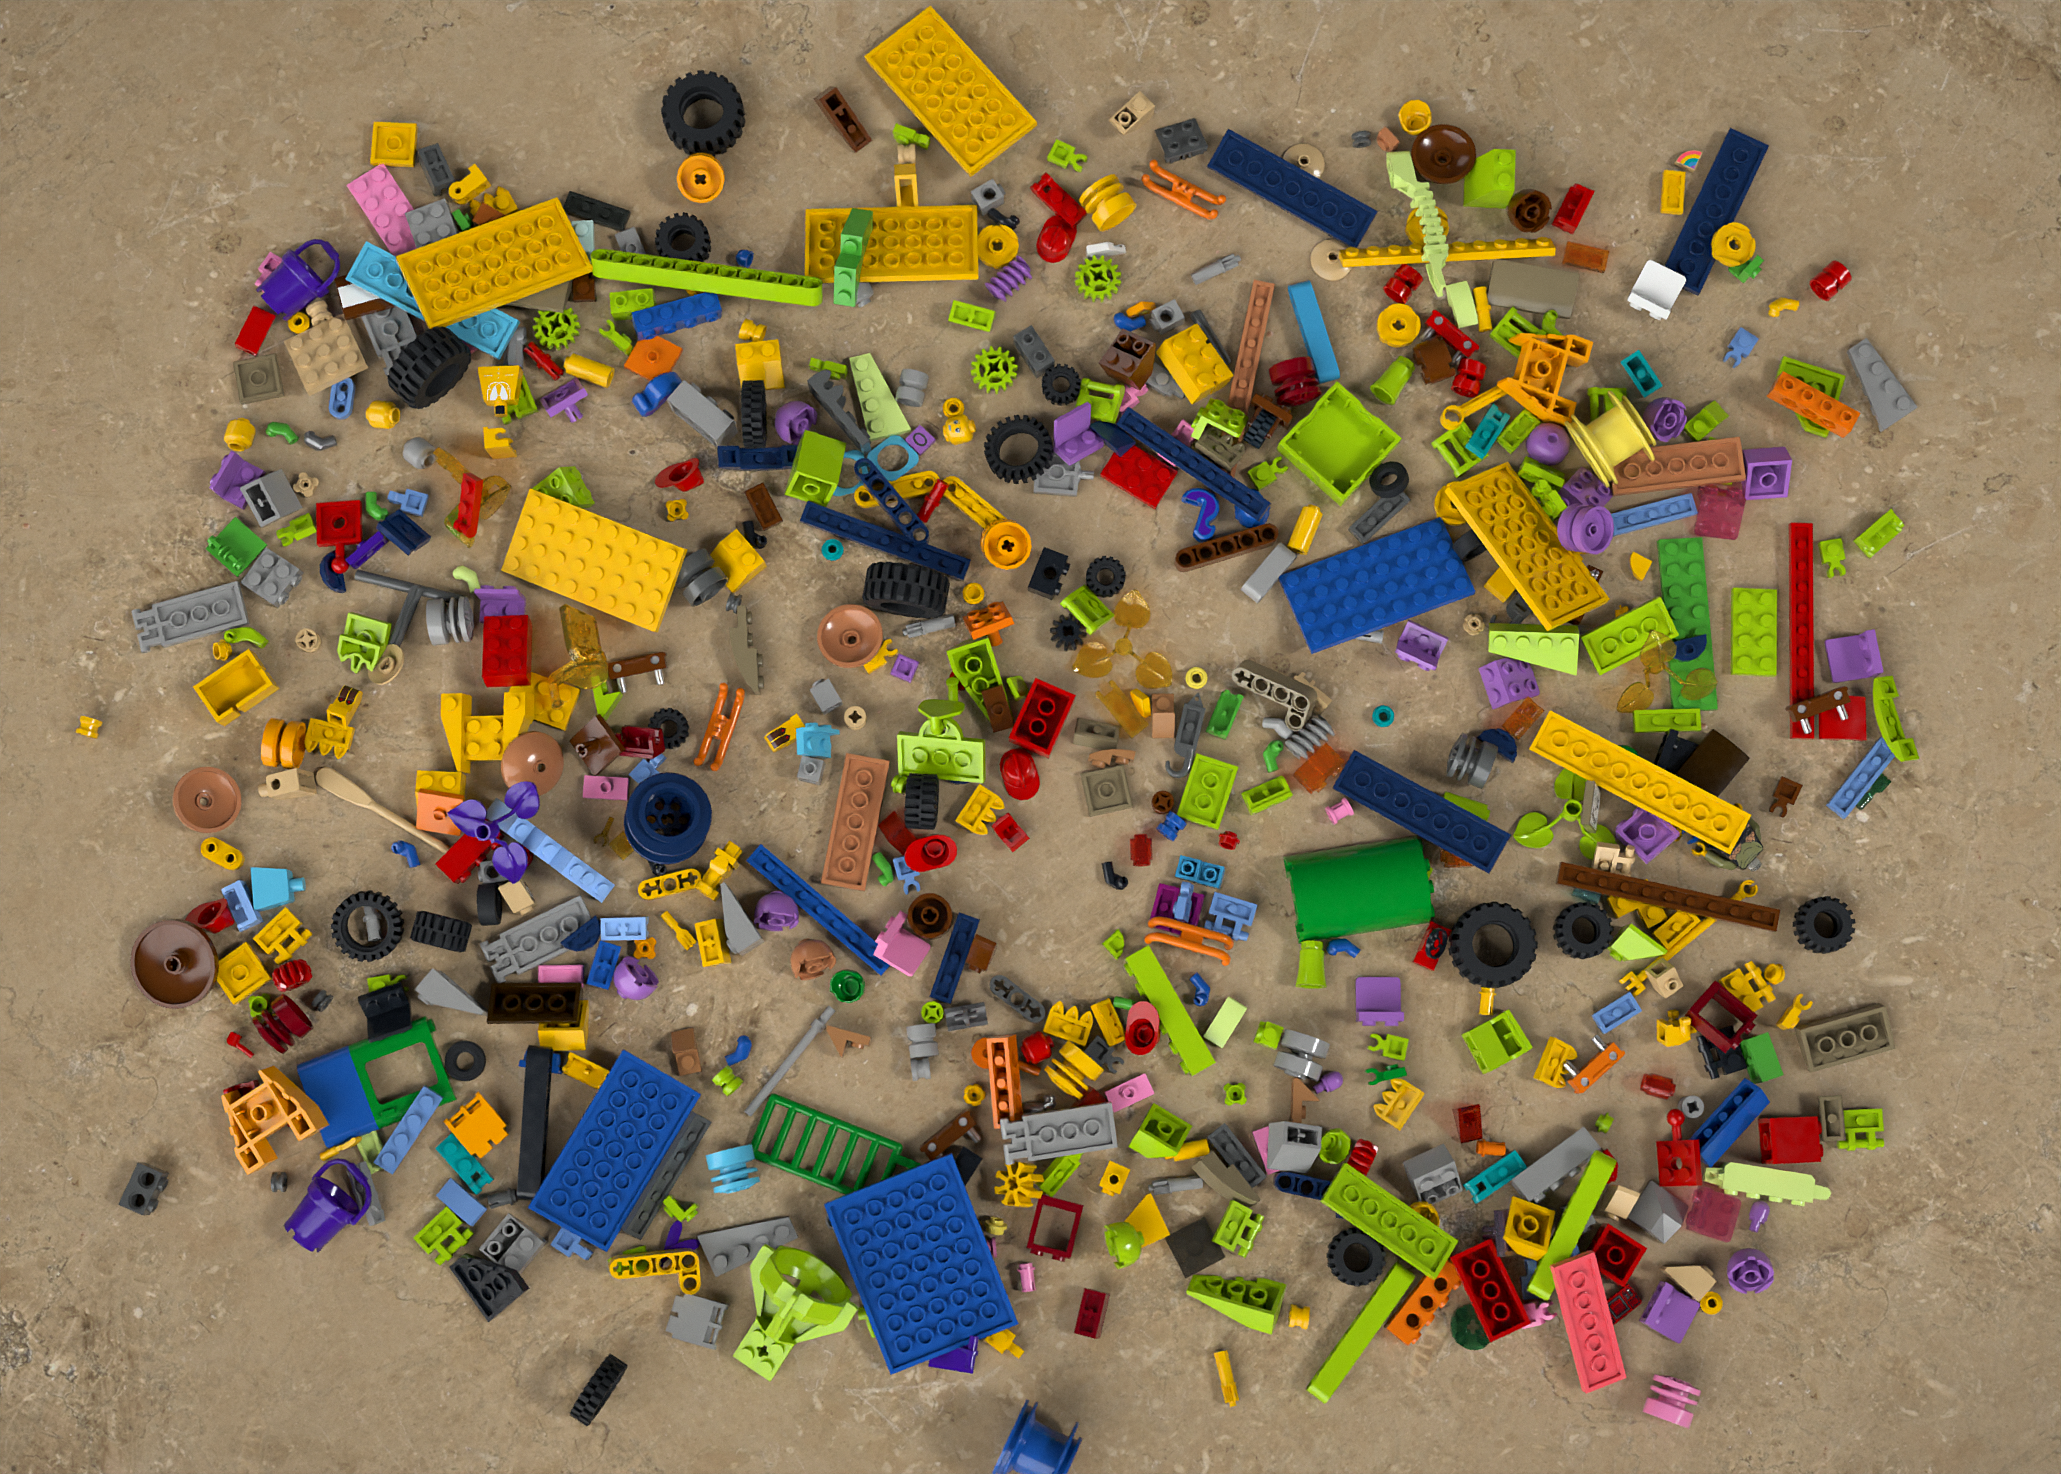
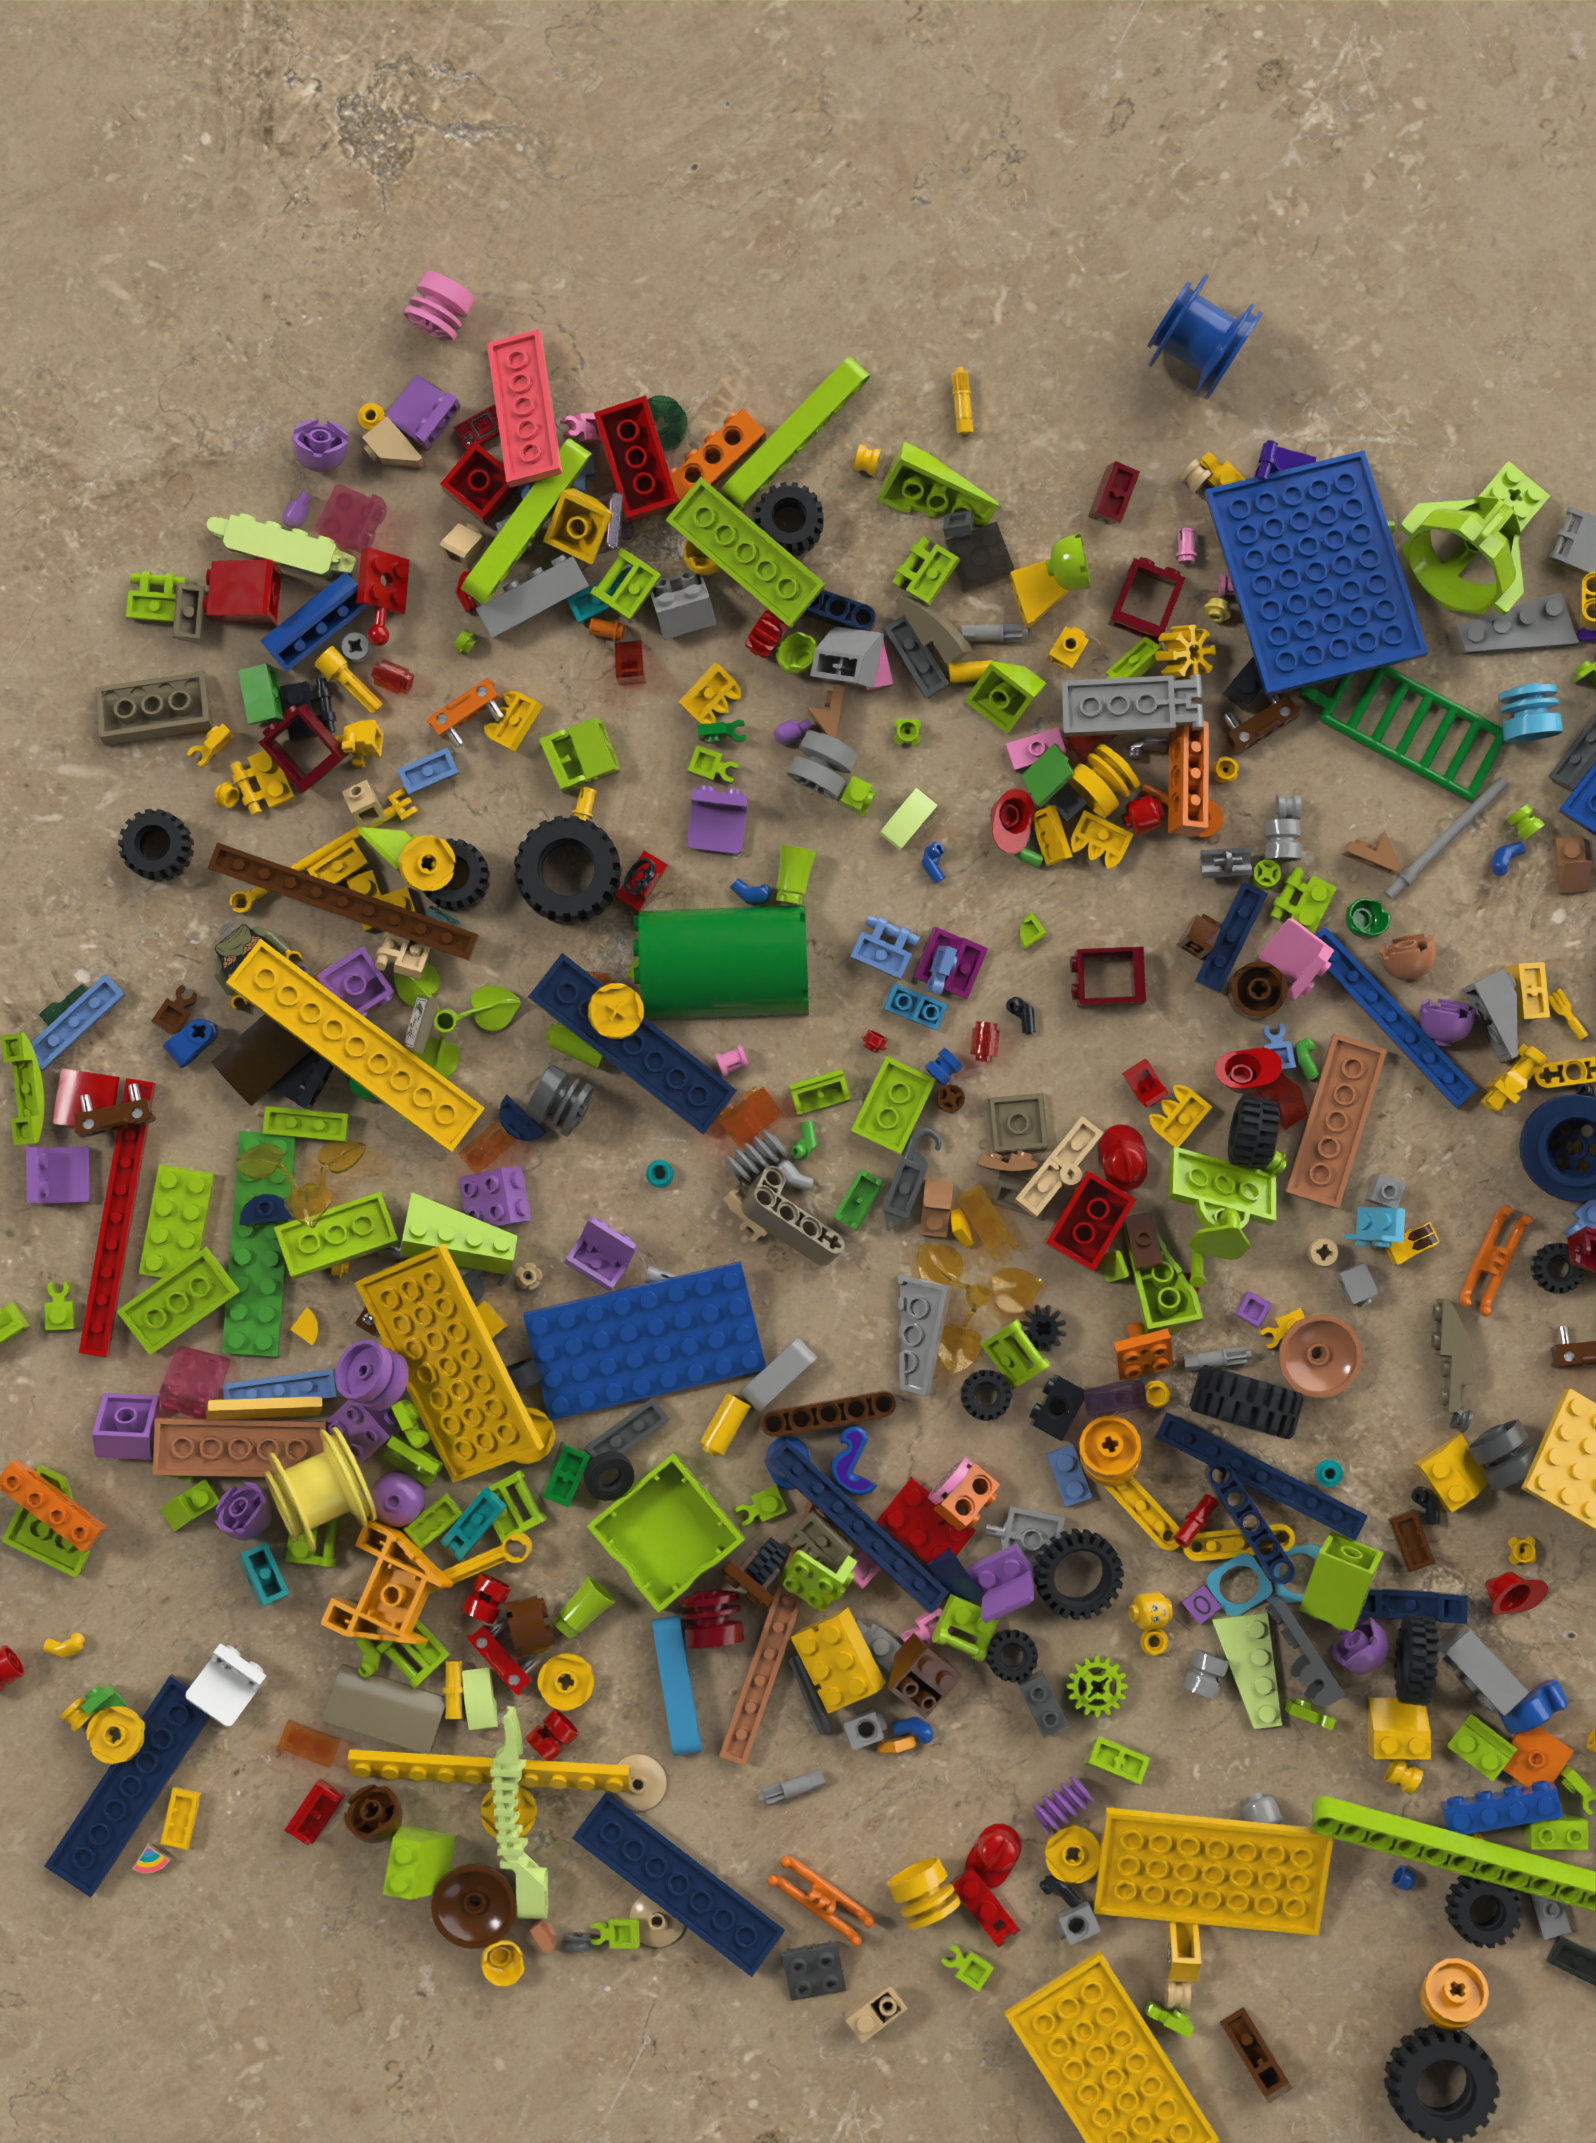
camera: 170 degrees left, 5 degrees up
(694, 360) = (1481, 1747): none -> lime plate
(852, 251) = (1268, 1867): bright green arch -> none
(893, 992) = (1311, 904): none -> lime plate
(1006, 583) = (1115, 1398): none -> clear purple brick
(1007, 984) = (1138, 871): dark grey beam -> none
(1027, 1337) = (1194, 476): none -> tan wheel
(1034, 524) = (1069, 1475): none -> medium blue plate
(1070, 756) = (1059, 1168): none -> tan hinge
(1072, 900) = (1137, 976): none -> dark red window
(1094, 286) = (938, 1803): lime gear -> none
(1105, 248) = (933, 1830): white tile -> none
(1115, 499) = (968, 1498): none -> orange brick
(1118, 1069) = (1047, 775): none -> bright green piece
(1126, 506) = (950, 1480): none -> bright pink tile
(1162, 620) = (923, 1316): none -> light grey wing
(1172, 1014) = (975, 839): lime brick -> none
(1190, 938) = (939, 923): orange piece -> none
(1196, 671) = (887, 1242): light yellow plate -> none
(1217, 1271) = (958, 524): none -> dark grey plate
(1330, 150) = (621, 1933): none -> lime plate
(1423, 477) = (565, 1474): none -> green hinge
(1439, 833) = (615, 1011): none -> yellow tile
(1475, 1180) = (633, 588): none -> lime plate
(1619, 938) = (442, 864): none -> yellow plate
(1658, 1212) = (415, 529): light grey slope -> none
(1663, 497) = (263, 1408): none -> yellow tile
(1705, 1088) = (335, 667): none -> yellow piece
(1741, 345) = (126, 1600): medium blue plate -> none
(1743, 571) = (178, 1300): none -> lime plate
(1766, 254) = (76, 1716): none -> yellow wheel
(1769, 771) = (187, 1045): none -> blue piece

